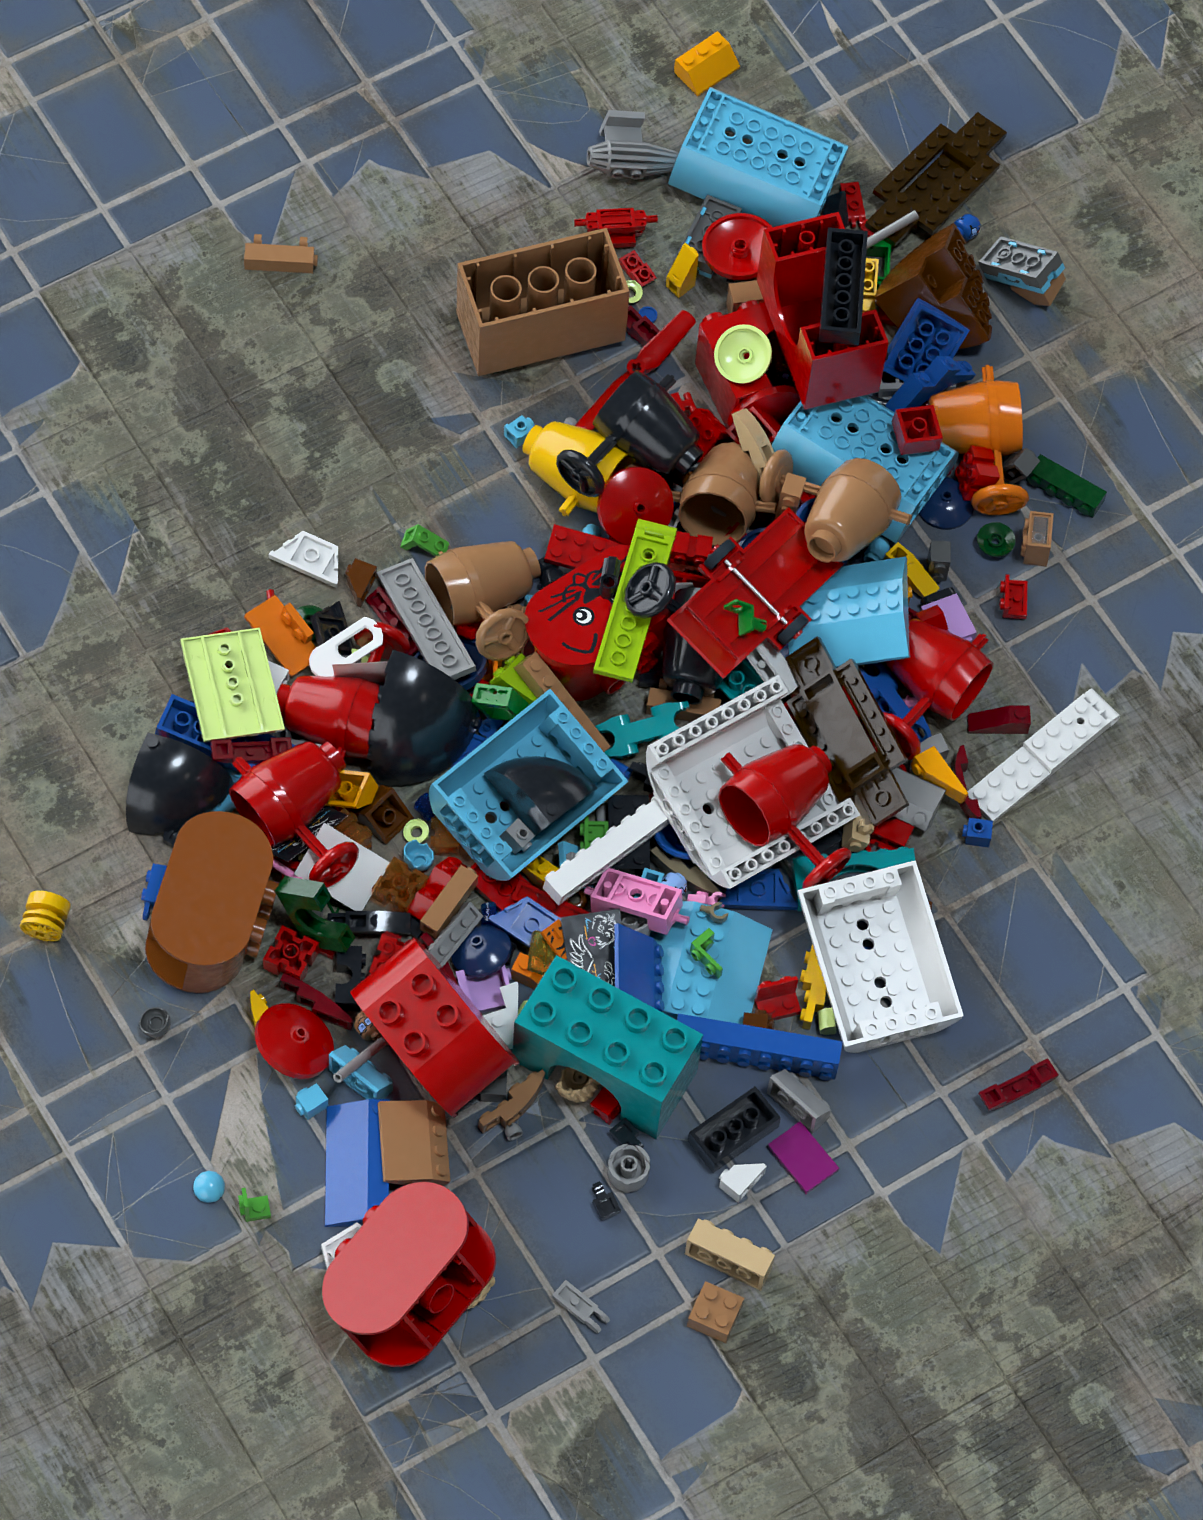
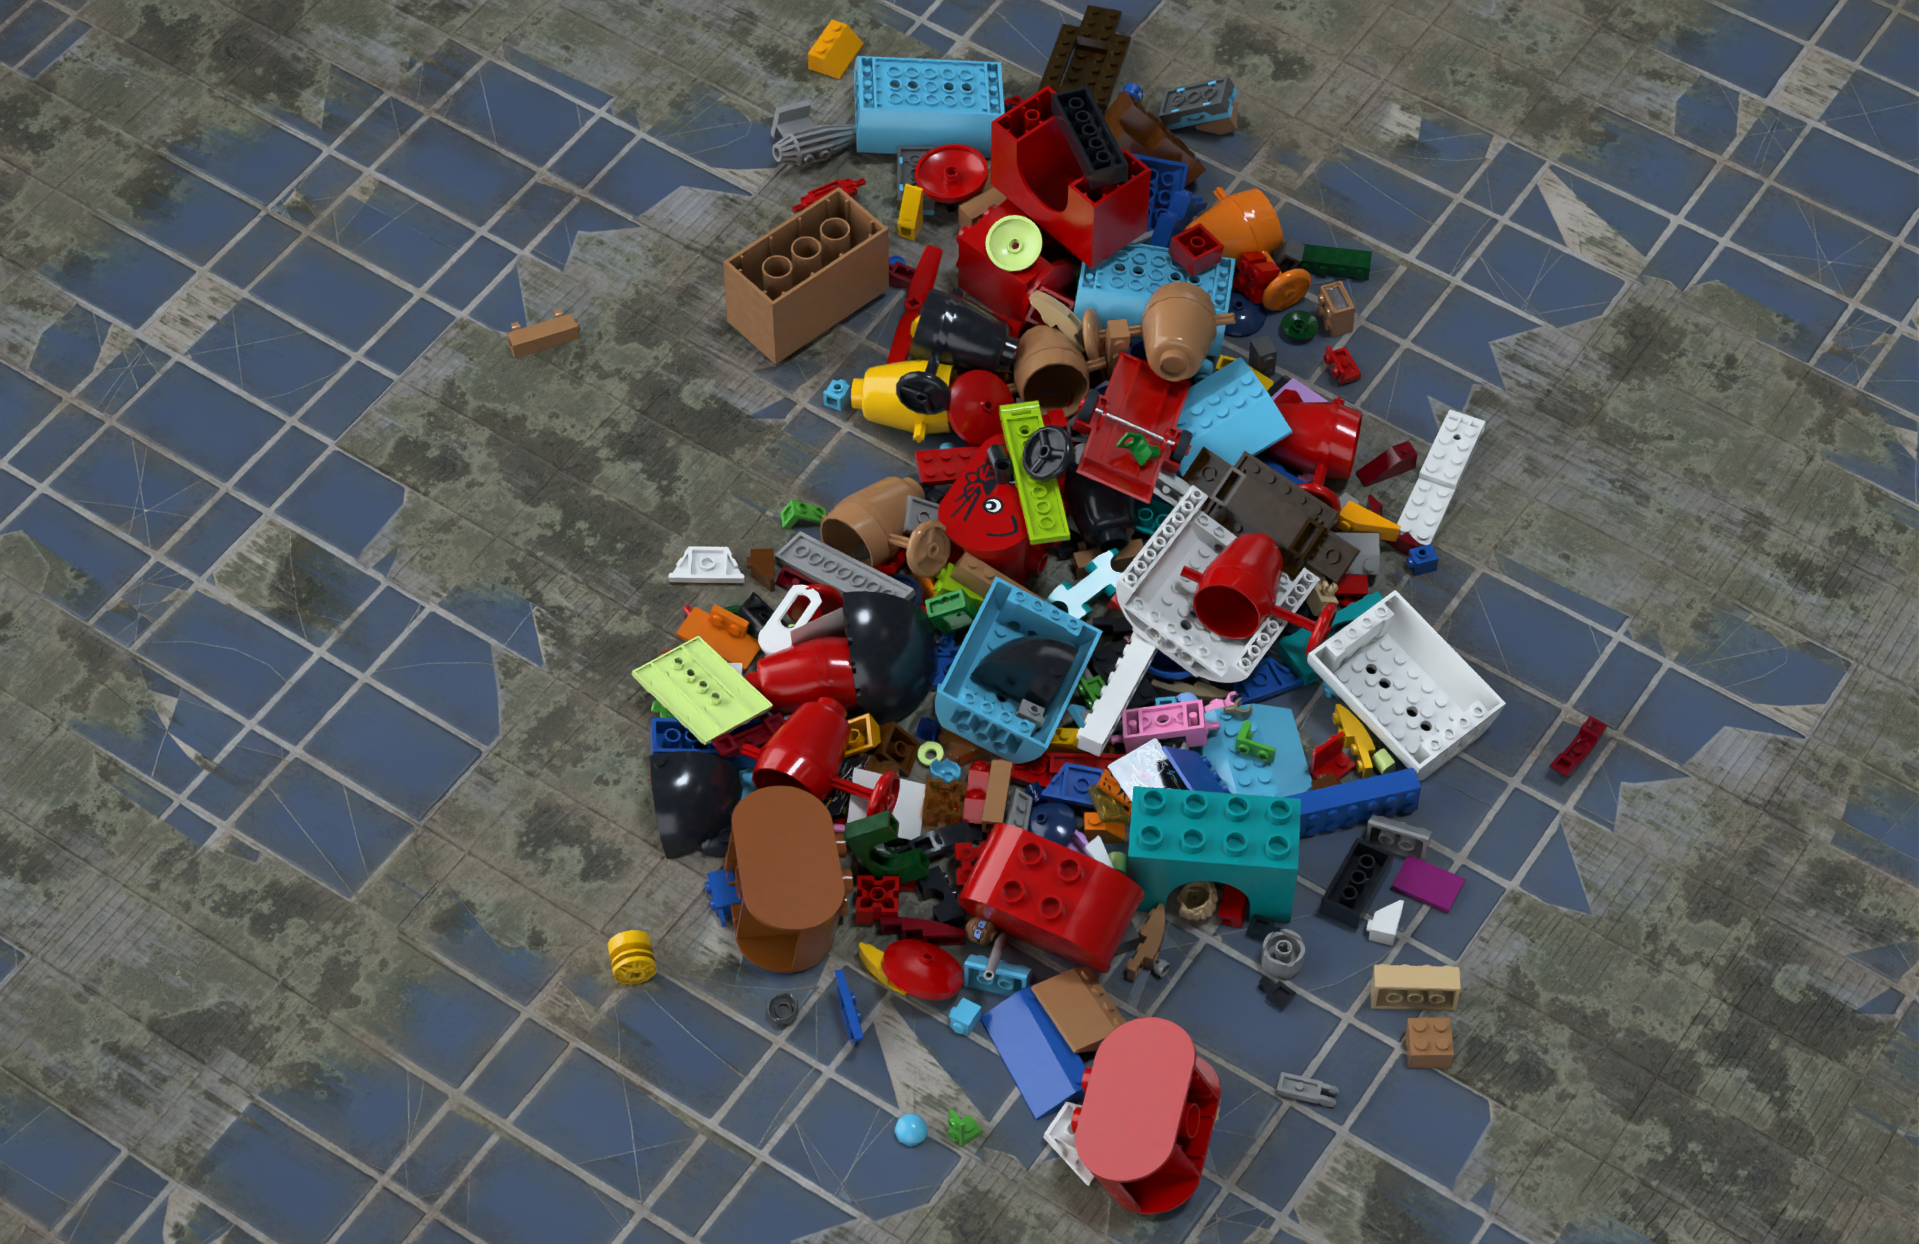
camera: 20 degrees left, 10 degrees down
(209, 1050) = (847, 1006): none -> blue wing
(518, 592) = (917, 512): none -> light grey tile

